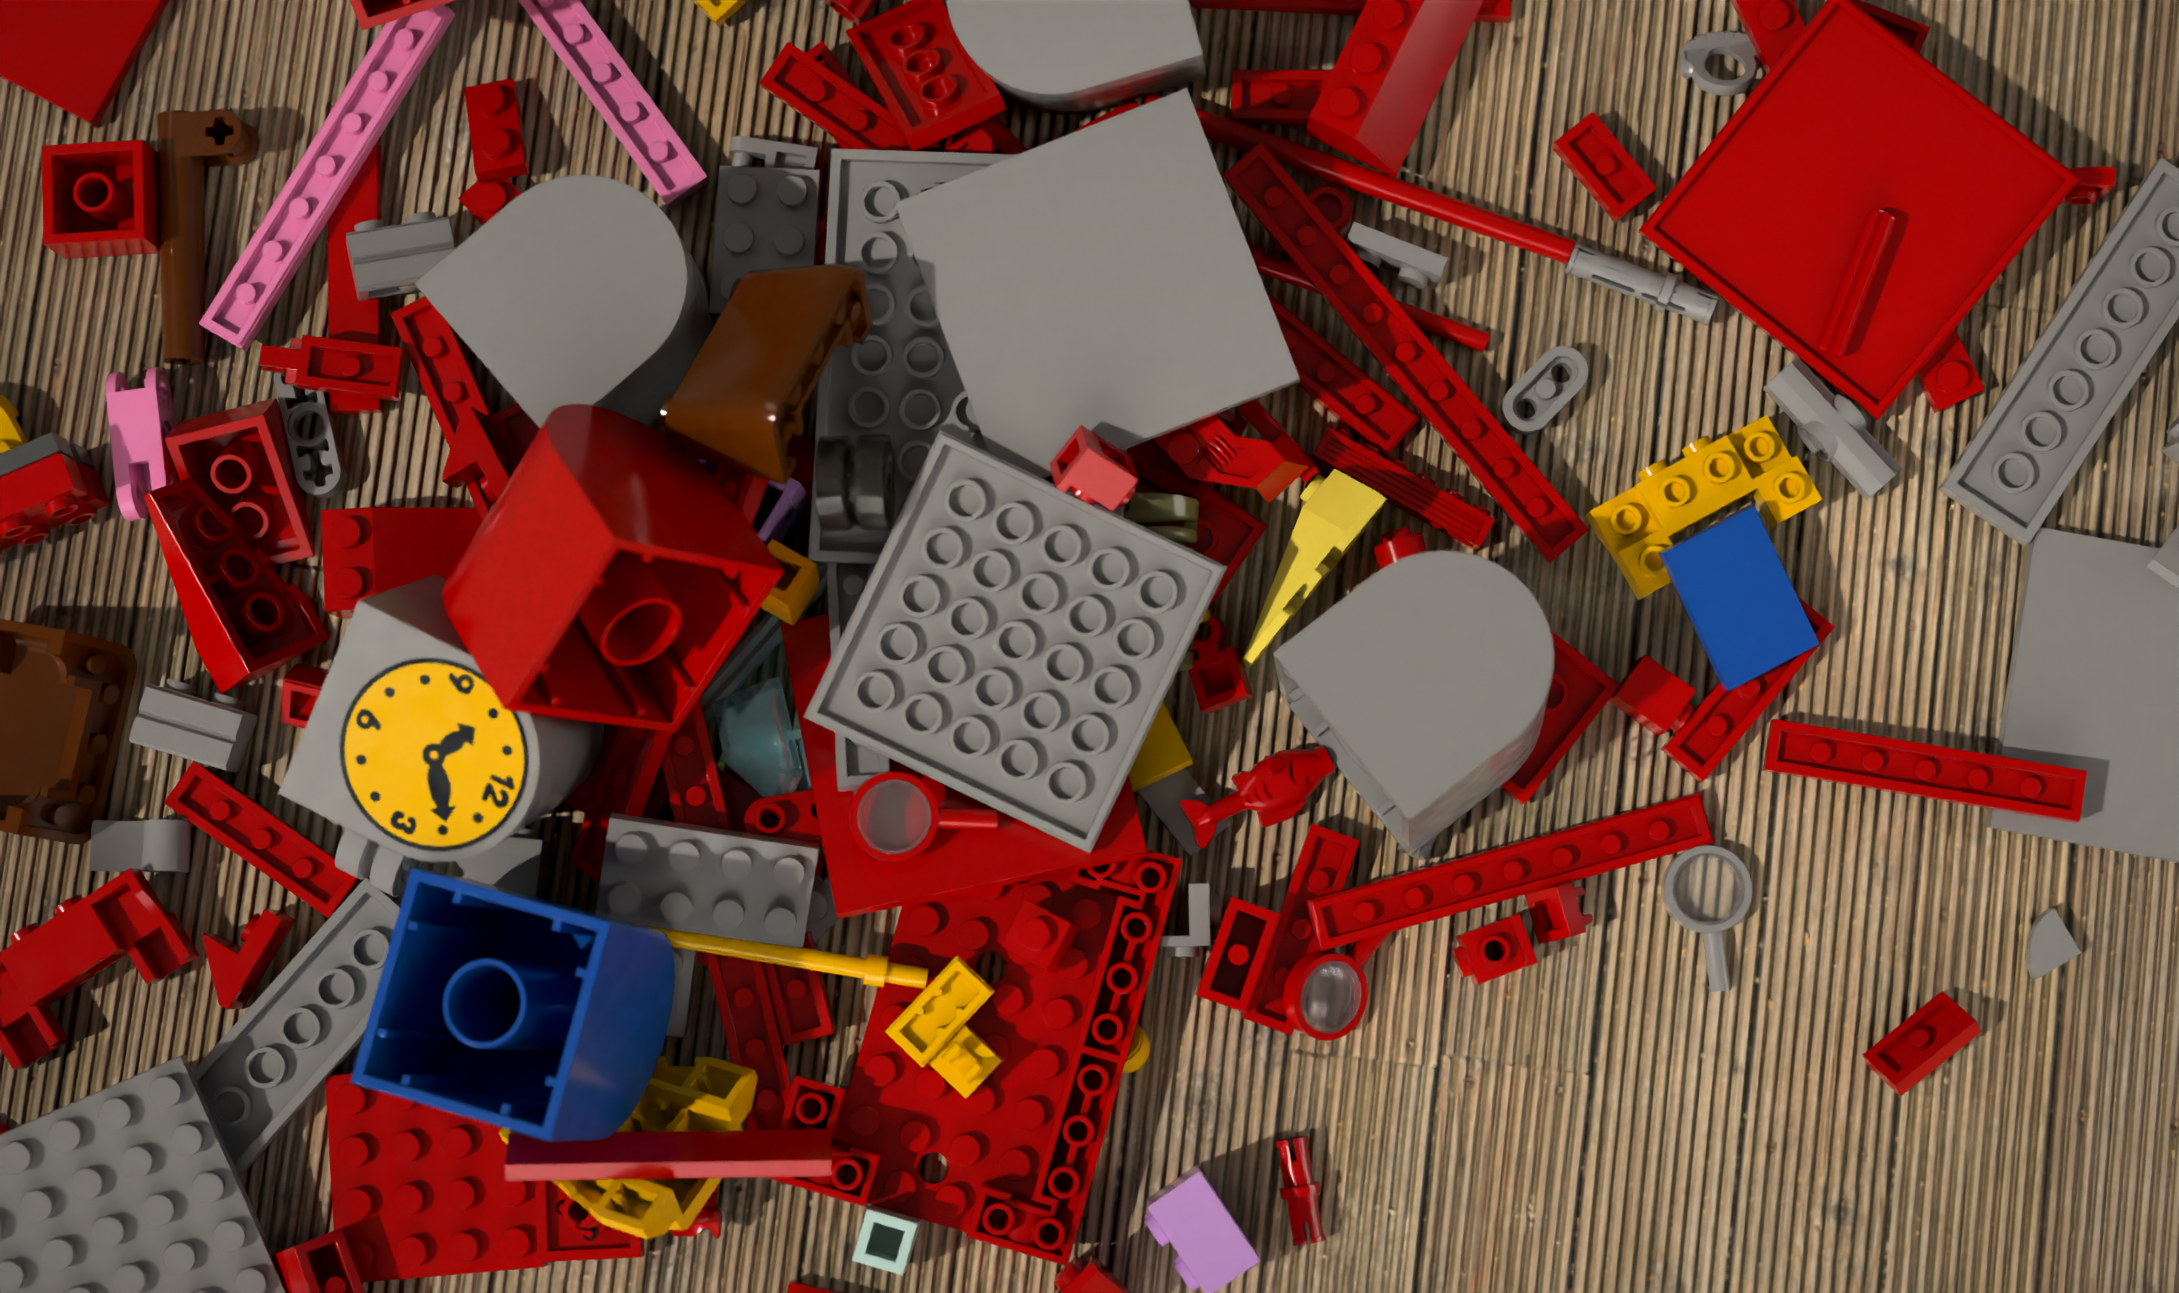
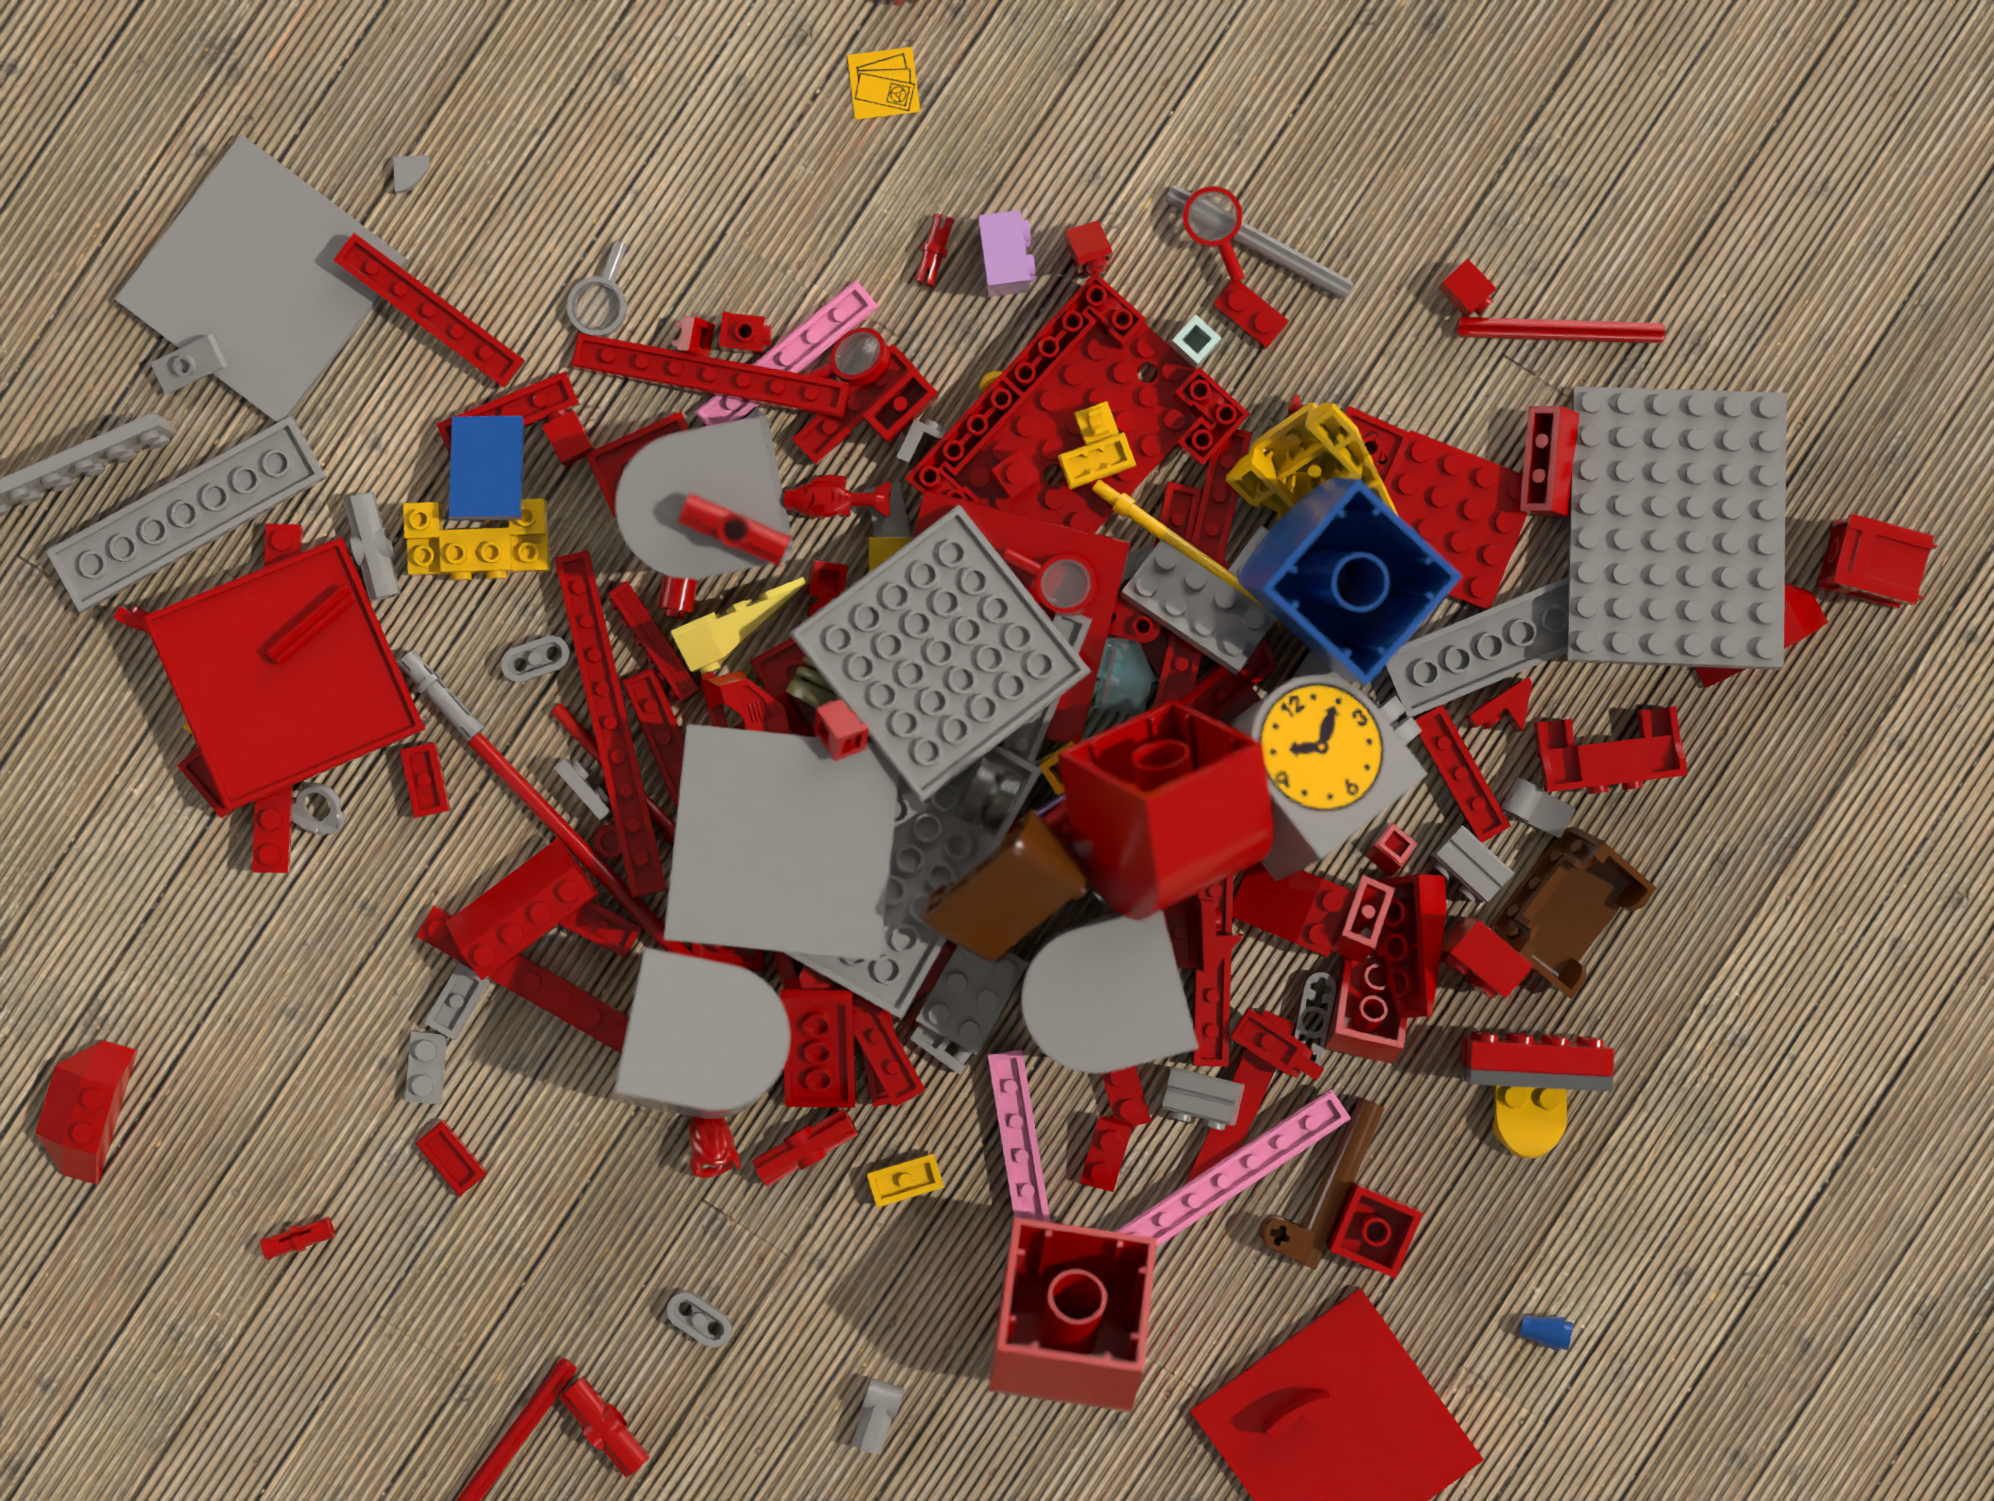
camera: 160 degrees left, 5 degrees up
(110, 603) = (1483, 956): none -> red brick
(138, 432) = (1421, 1061): bright pink piece -> none
(295, 582) = (1363, 919): none -> red slope
(672, 1155) = (1292, 446): red tile -> none
(1402, 647) = (712, 518): none -> red piece
(1412, 967) = (799, 348): none -> bright pink tile
(1921, 1043) = (517, 151): red plate -> none

